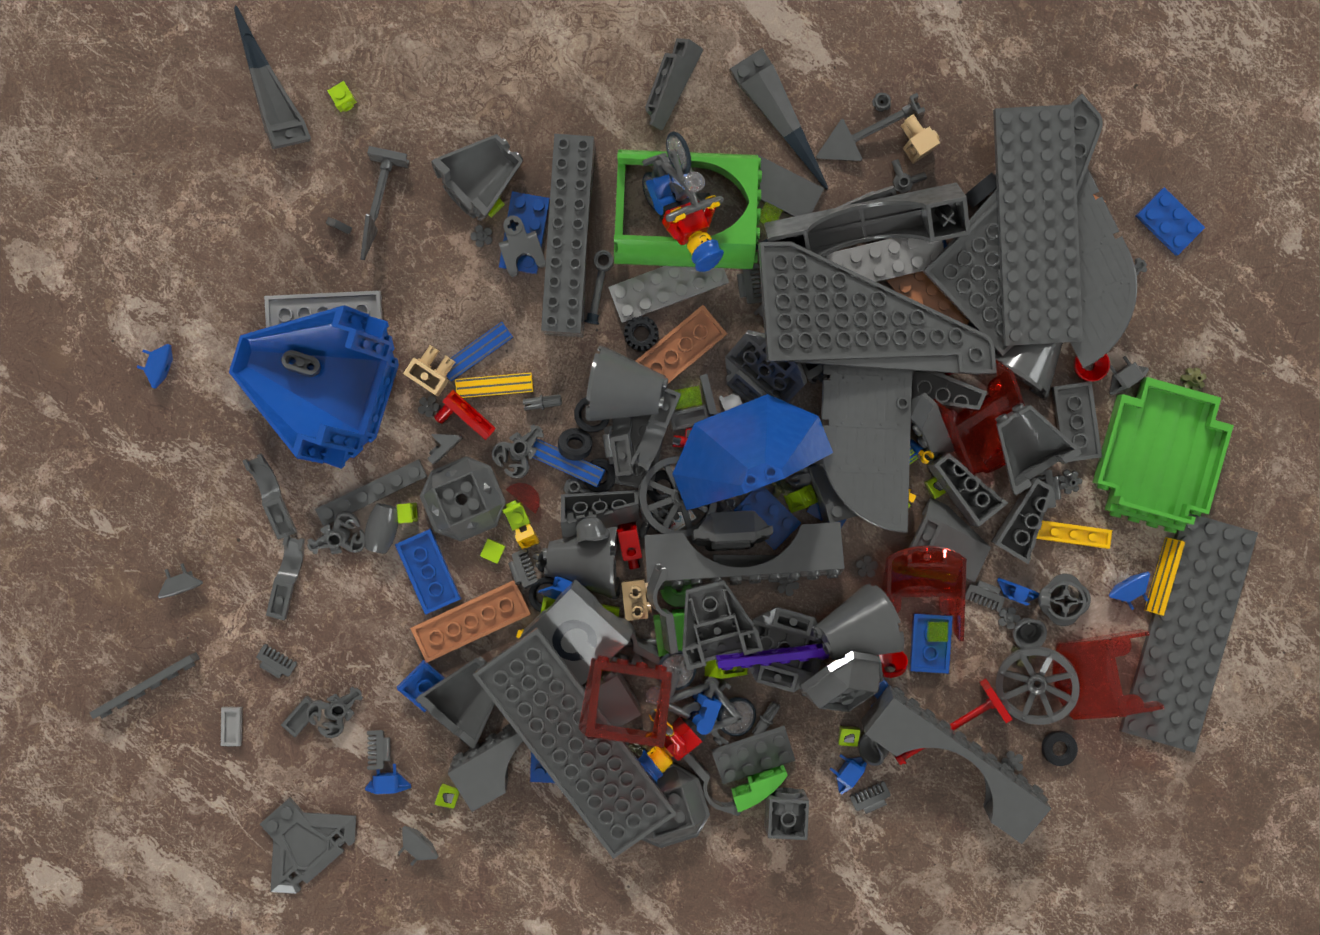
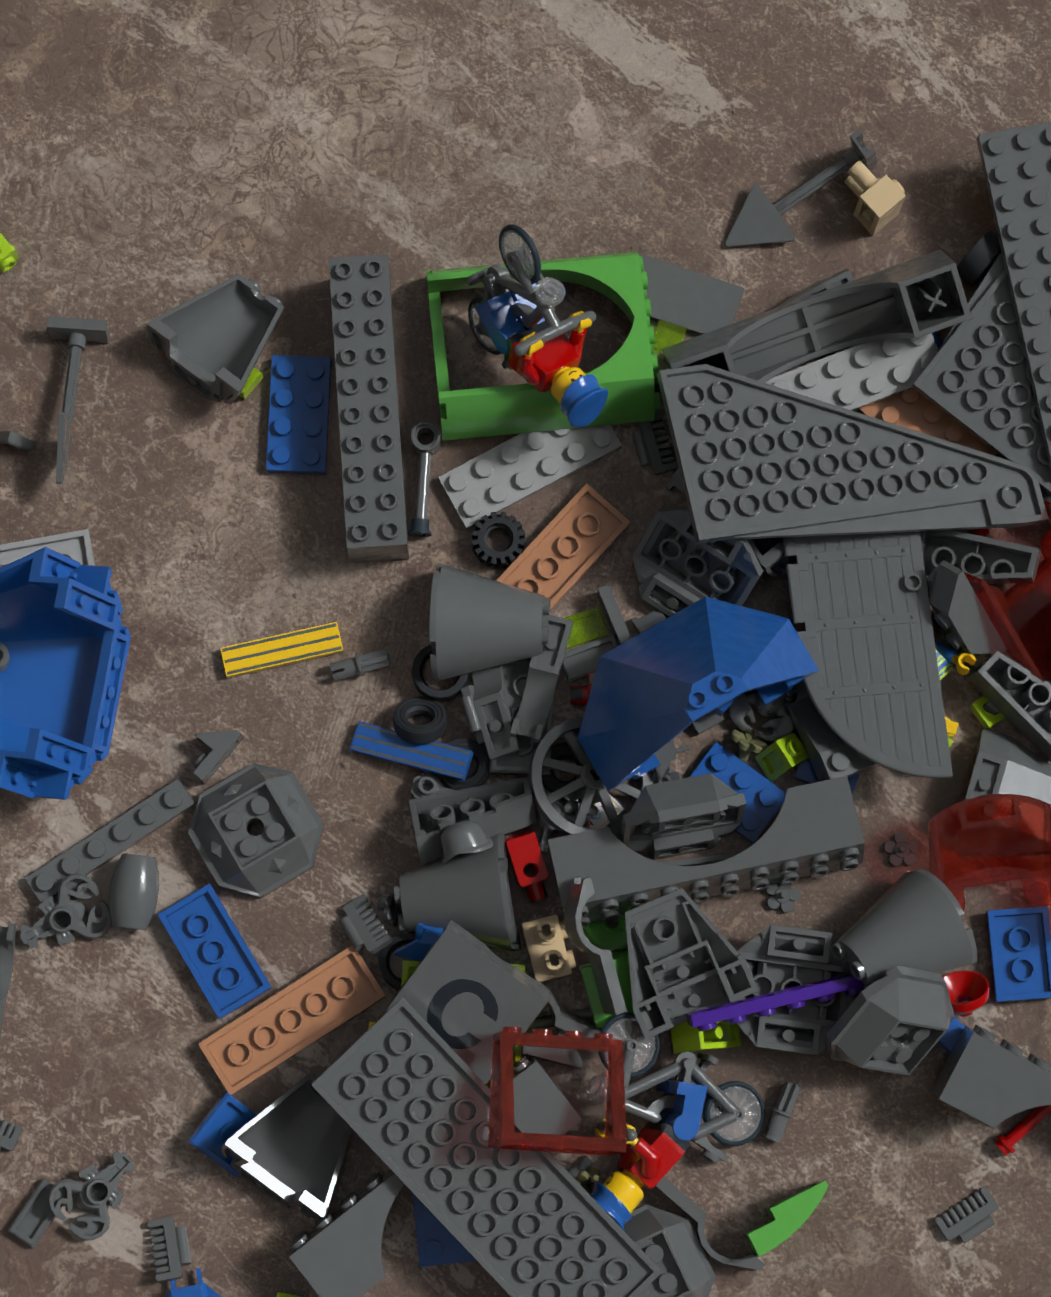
camera: 15 degrees left, 10 degrees down
(407, 513) = (171, 862): lime slope -> none
(421, 372) = (176, 648): tan brick -> none
(428, 406) = (183, 695): dark grey plant -> none
(456, 404) = (227, 683): red piece -> none
(479, 350) = (248, 602): blue tile -> none
(482, 236) = (234, 428): dark grey plant -> none
(492, 551) = (312, 905): lime tile -> none
(516, 515) = (342, 844): lime bracket -> none
(518, 450) = (333, 744): dark grey animal -> none
(520, 244) = (295, 430): dark grey piece -> none
(525, 494) = (353, 811): clear red tile -> none
(526, 538) = (364, 876): yellow tile -> none
(671, 80) = (491, 163): dark grey wedge -> none
(753, 755) = (770, 1171): dark grey plate -> none
(762, 85) = (630, 153): dark grey plate -> none
(787, 814) = (836, 1250): dark grey brick -> none
(849, 736) = (917, 1121): lime slope -> none
(849, 773) = (927, 1179): blue piece -> none
(871, 751) = (958, 1133): dark grey helmet -> none
(881, 97) = (814, 145): dark grey plate -> none
(903, 181) = (861, 261): dark grey piece -> none
(937, 631) = (1027, 932): clear neon green tile -> none

